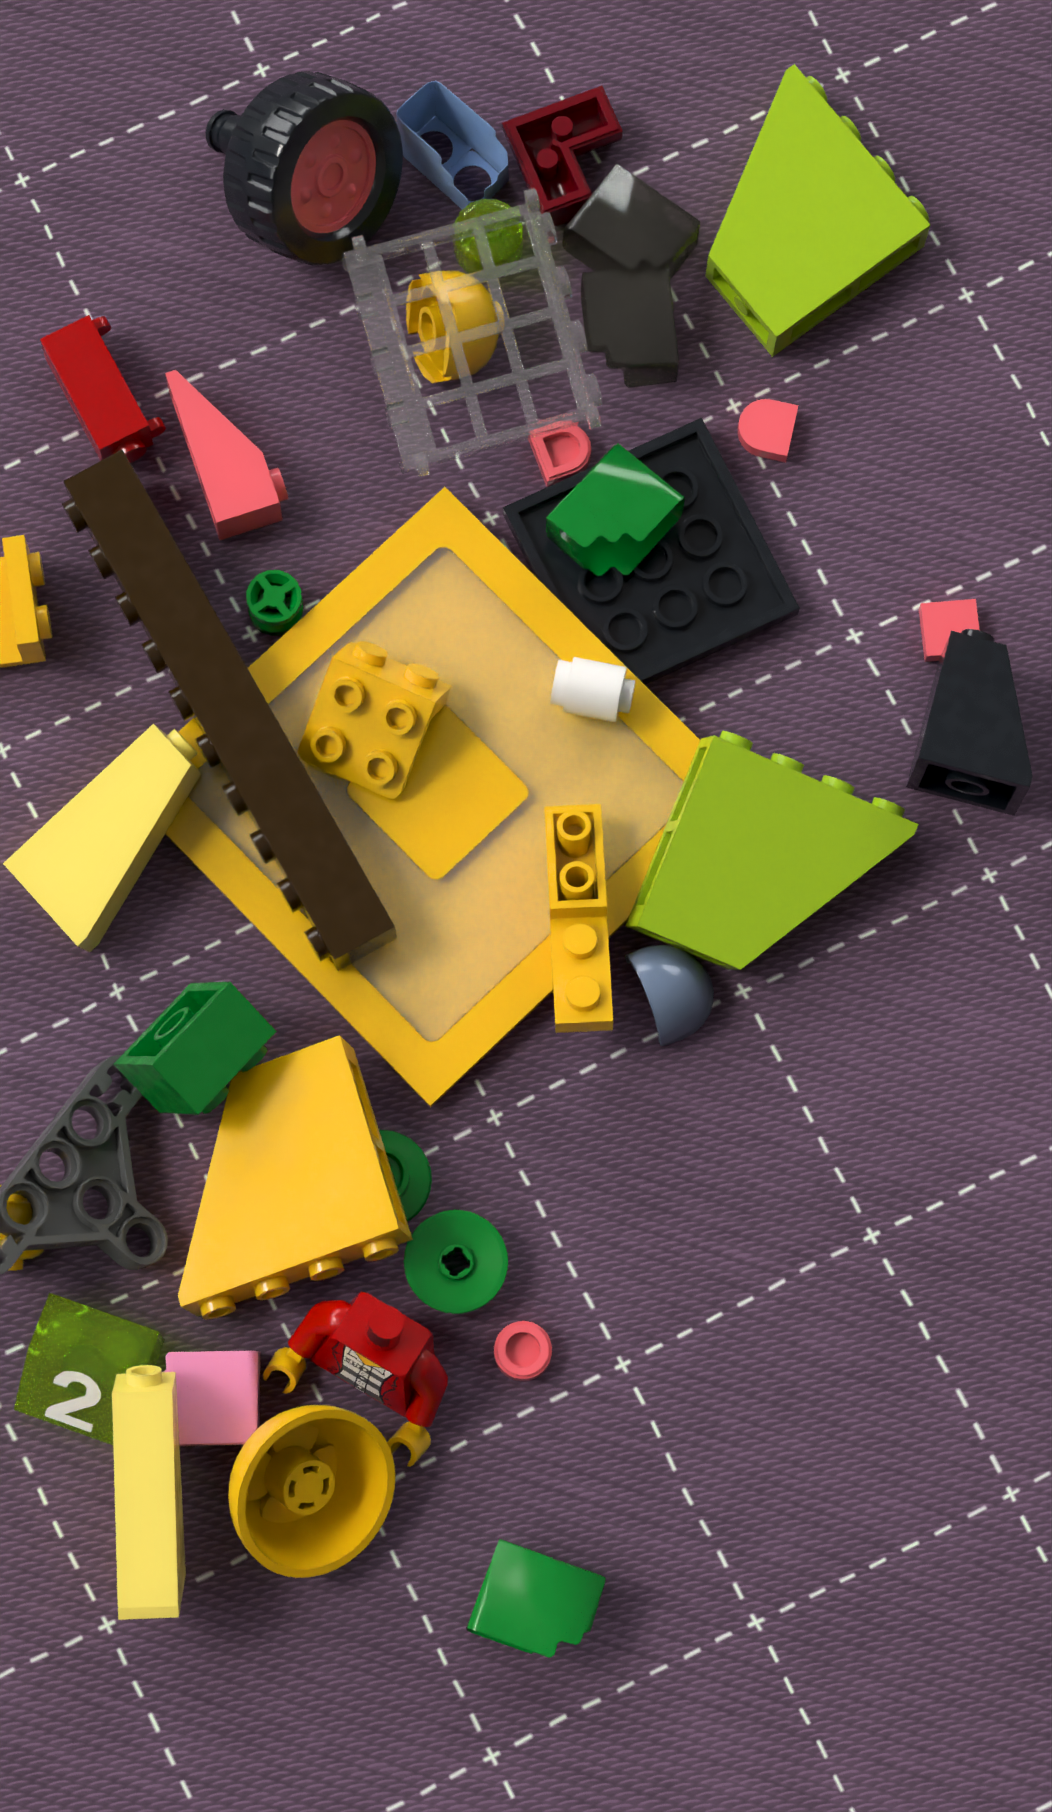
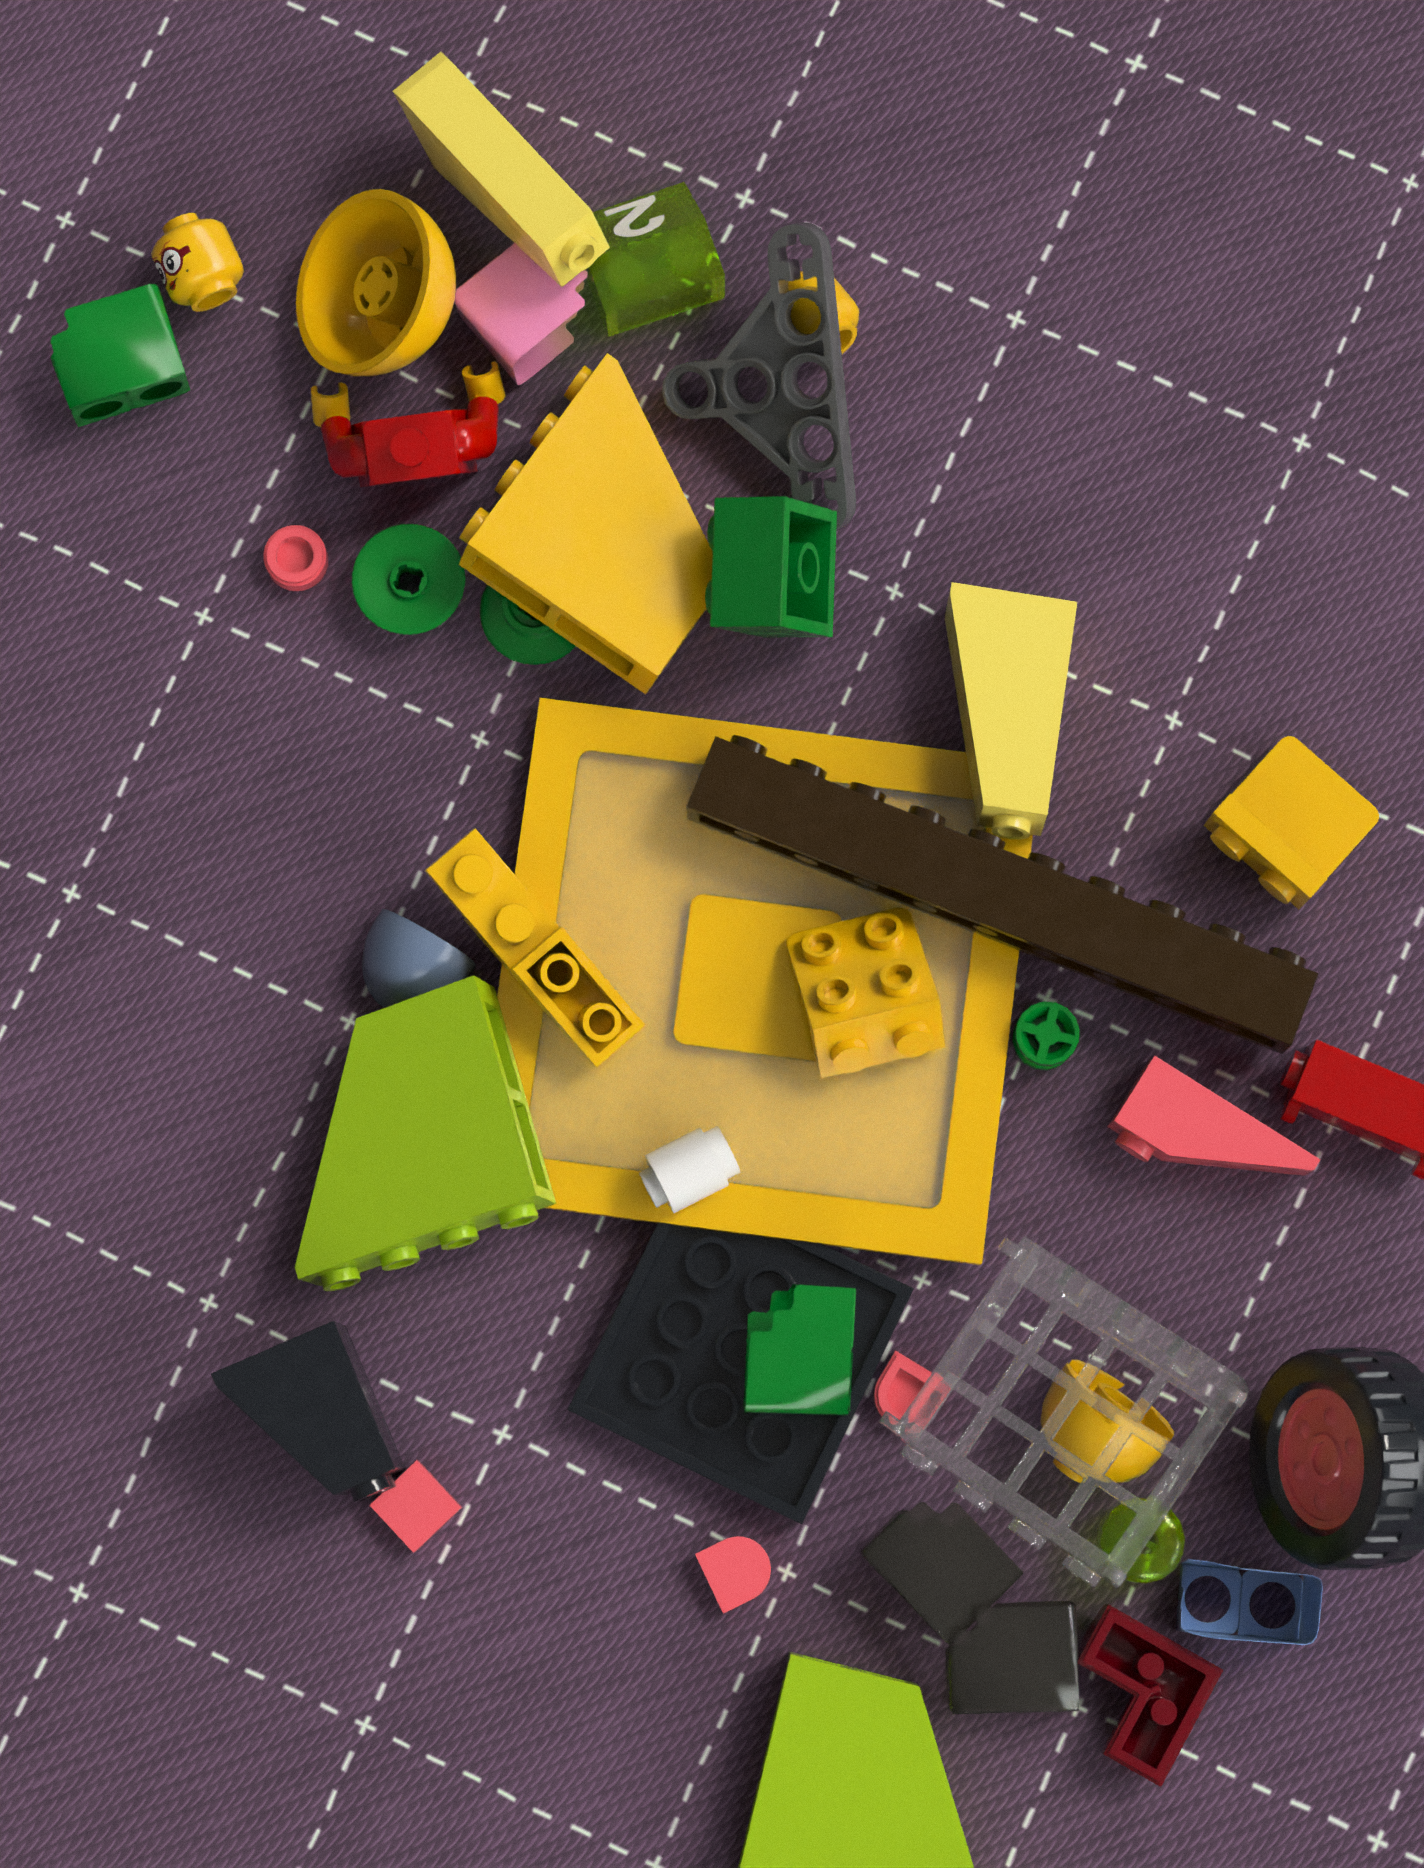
camera: 145 degrees right, 5 degrees up
(421, 1627) = (197, 262): none -> yellow head

